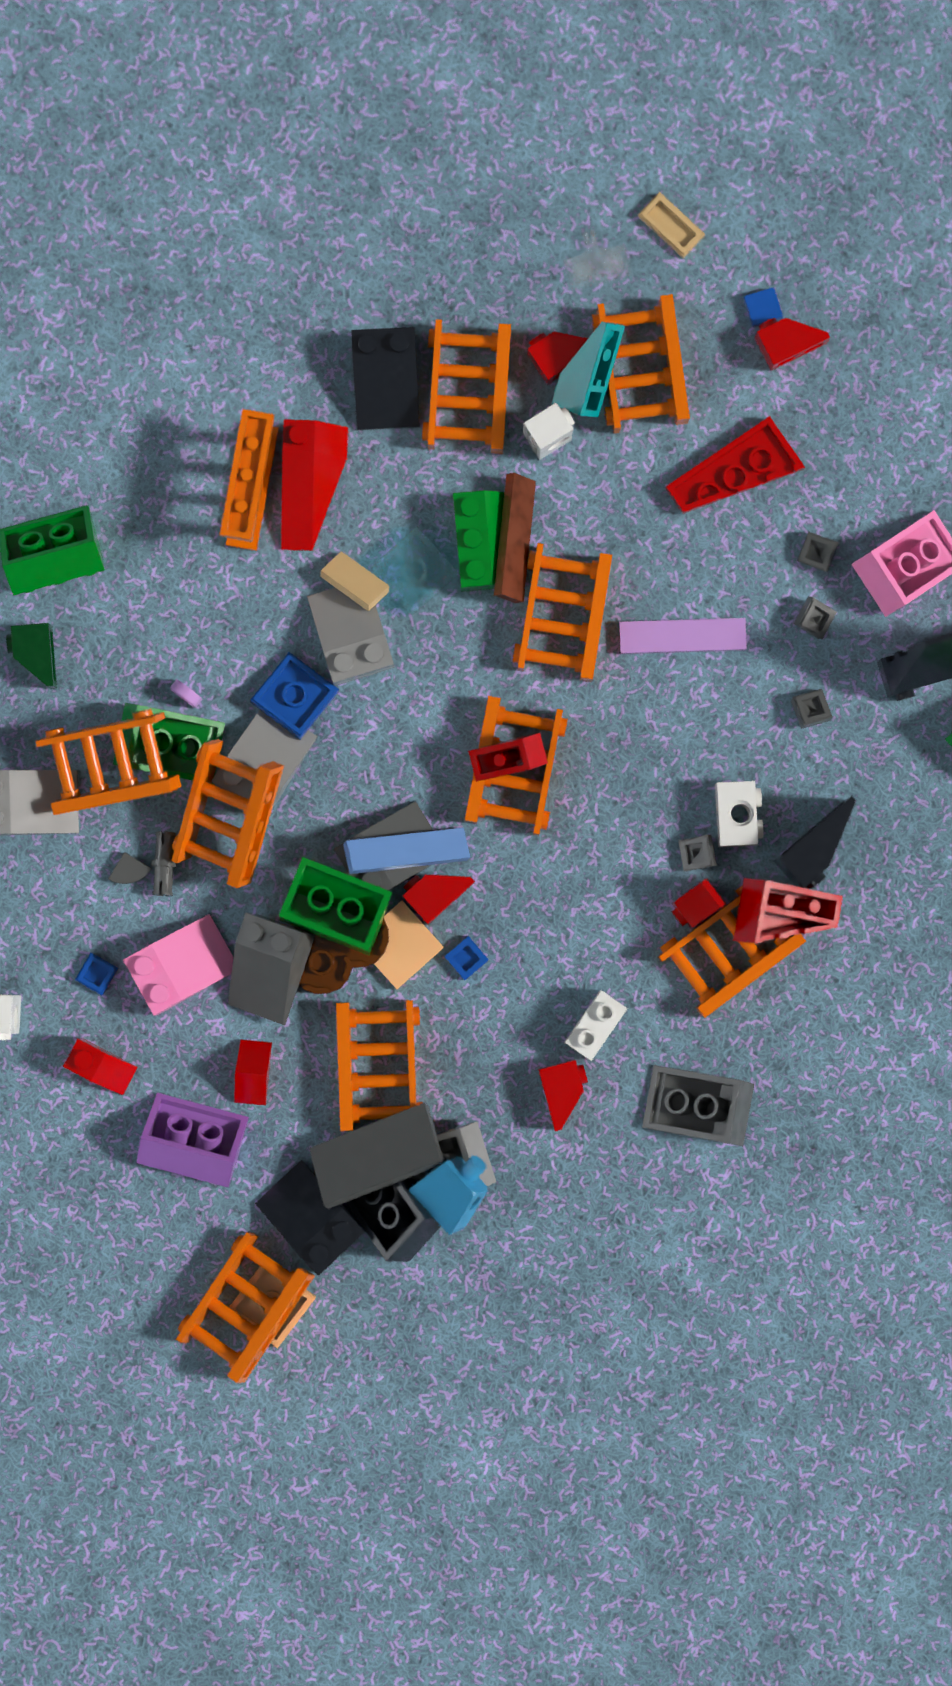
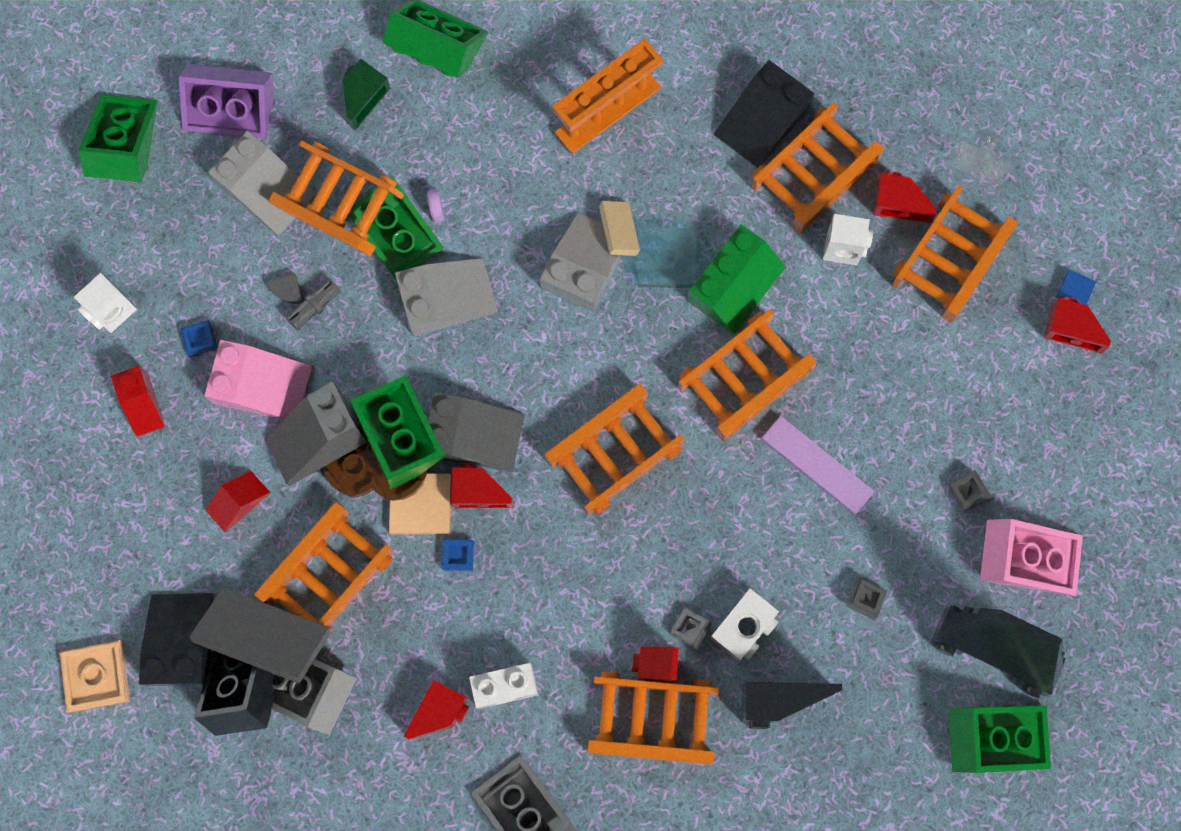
camera: 45 degrees right, 10 degrees down
(192, 1140) = (150, 508): medium lavender slope -> none
(256, 811) = (400, 320): orange fence -> none
(258, 1335) = (90, 682): orange fence -> none
(294, 695) = (507, 270): blue tile -> none
(311, 469) = (656, 131): red wedge -> none
(406, 850) = (483, 438): medium blue tile -> none
(452, 1192) = (285, 711): dark azure torso -> none
(508, 757) = (615, 435): red slope -> none
(514, 538) = (757, 293): copper tile -> none
(587, 375) = (911, 223): teal slope -> none
(671, 225) = (1057, 181): tan tile -> none
(741, 465) = (967, 383): red wing -> none
(782, 910) = (716, 724): red wedge -> none
(815, 617) = (926, 535): dark grey tile -> none

